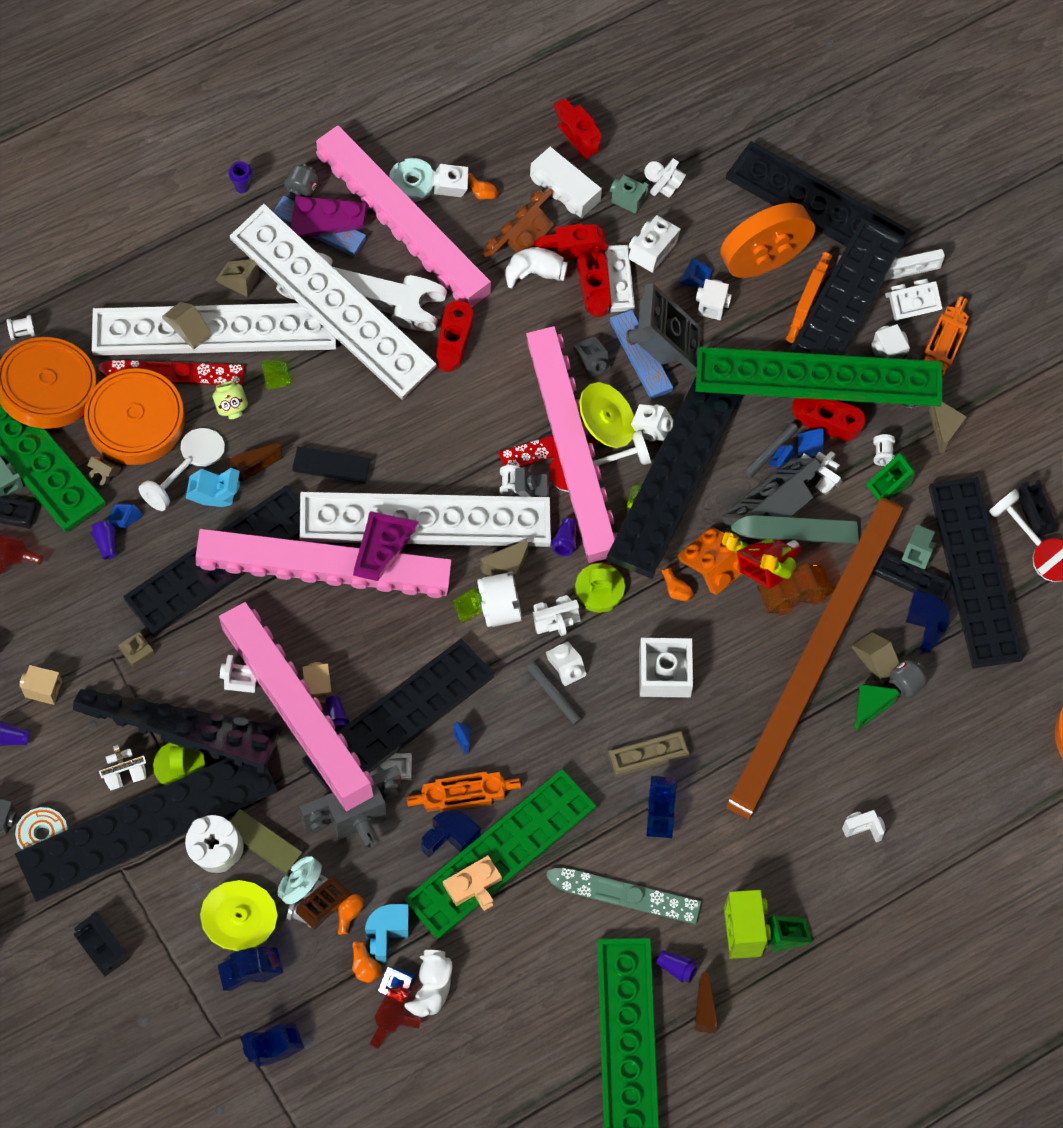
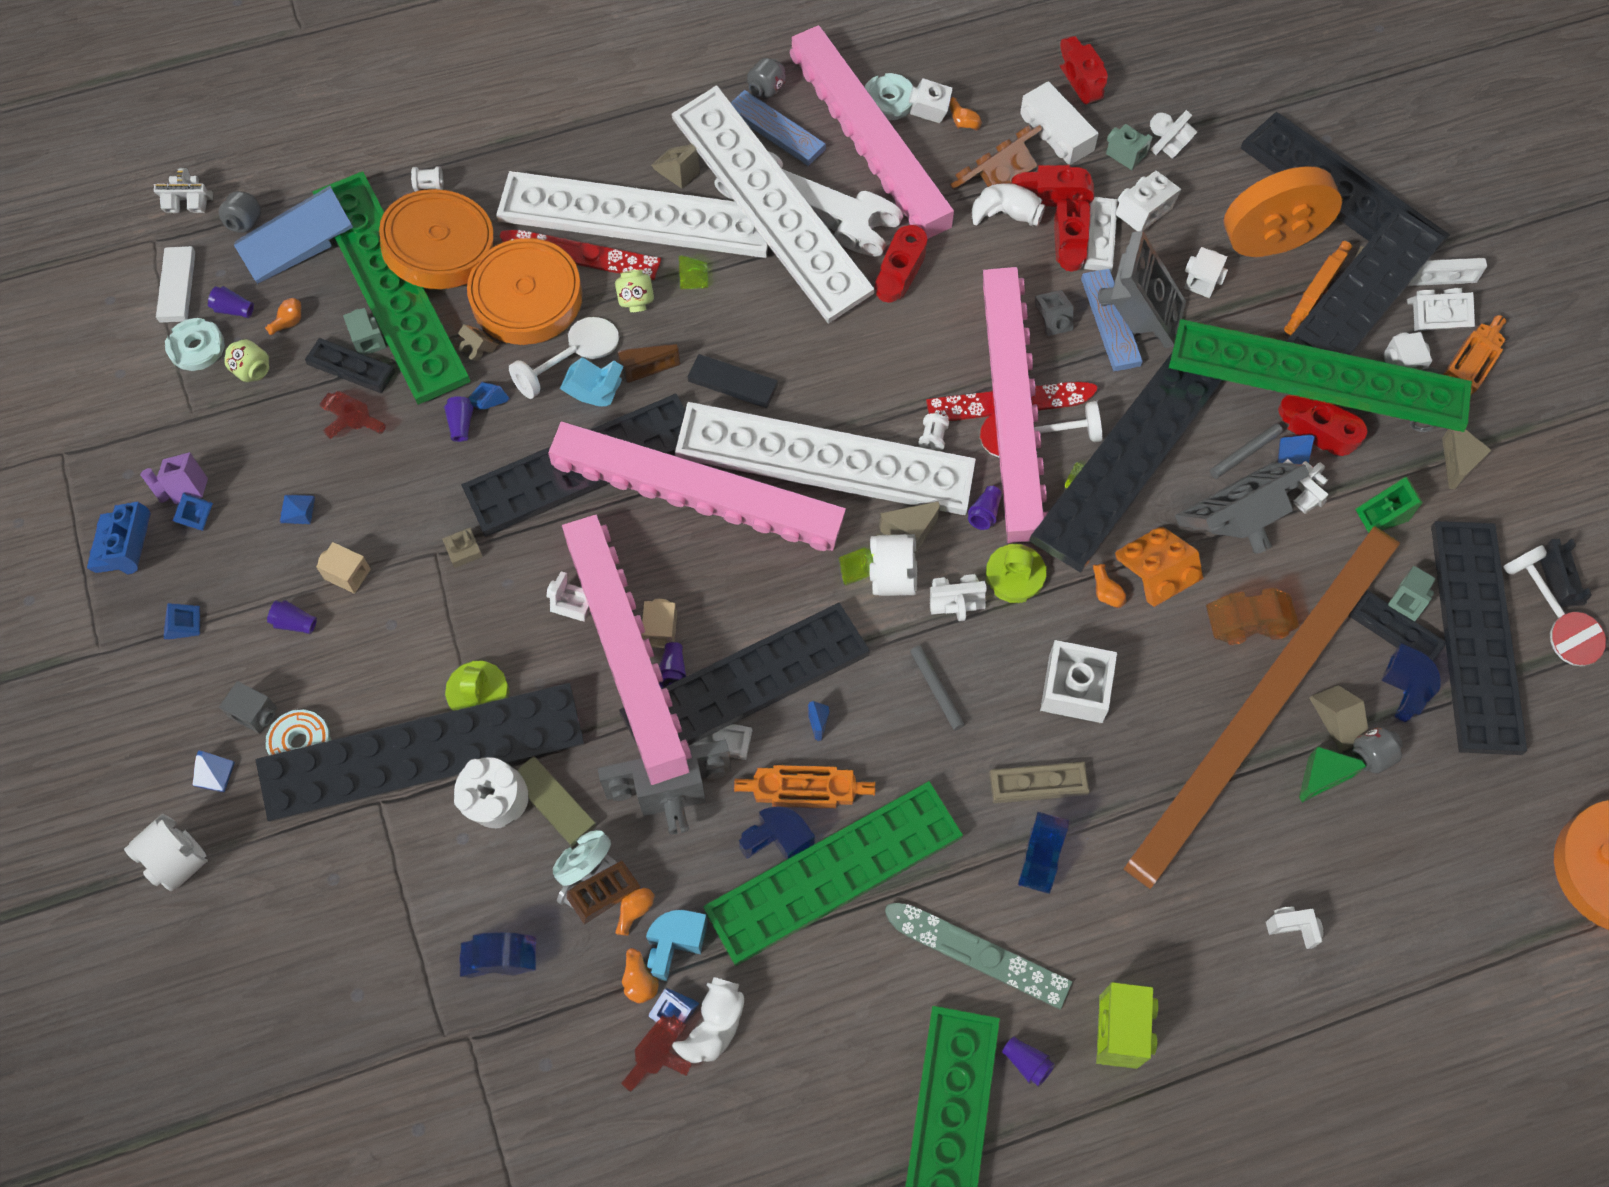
camera: 15 degrees right, 0 degrees up
(100, 944) = (329, 889): black hinge -> none
(112, 774) = (395, 686): white hips -> none
(186, 727) = (496, 649): black wing -> none
(188, 324) = (607, 203): dark tan slope -> none
(238, 915) = (499, 887): neon yellow piece -> none
(240, 175) = (701, 60): dark purple cone -> none
(272, 1045) = (499, 1060): clear blue brick -> none
(320, 216) = (779, 114): magenta wing -> none
(382, 543) = (766, 475): magenta wing -> none
(473, 882) = (792, 902): light nougat plate -> none
(529, 485) = (956, 441): dark grey bracket -> none
(567, 663) = (959, 654): white bracket -> none
(607, 415) = (1060, 376): neon yellow piece -> none
(652, 422) = (1112, 393): white brick -> none
(696, 274) = (1189, 243): blue slope -> none
(706, 1015) = (1053, 1131): reddish brown slope -> none
(766, 560) = (1222, 575): torso -> none
(782, 455) = (1259, 458): blue slope -> none
(788, 932) = (1178, 1046): green slope -> none
(797, 529) = (1266, 544): sand green piece -> none
(884, 449) = (1383, 471): white bush -> none

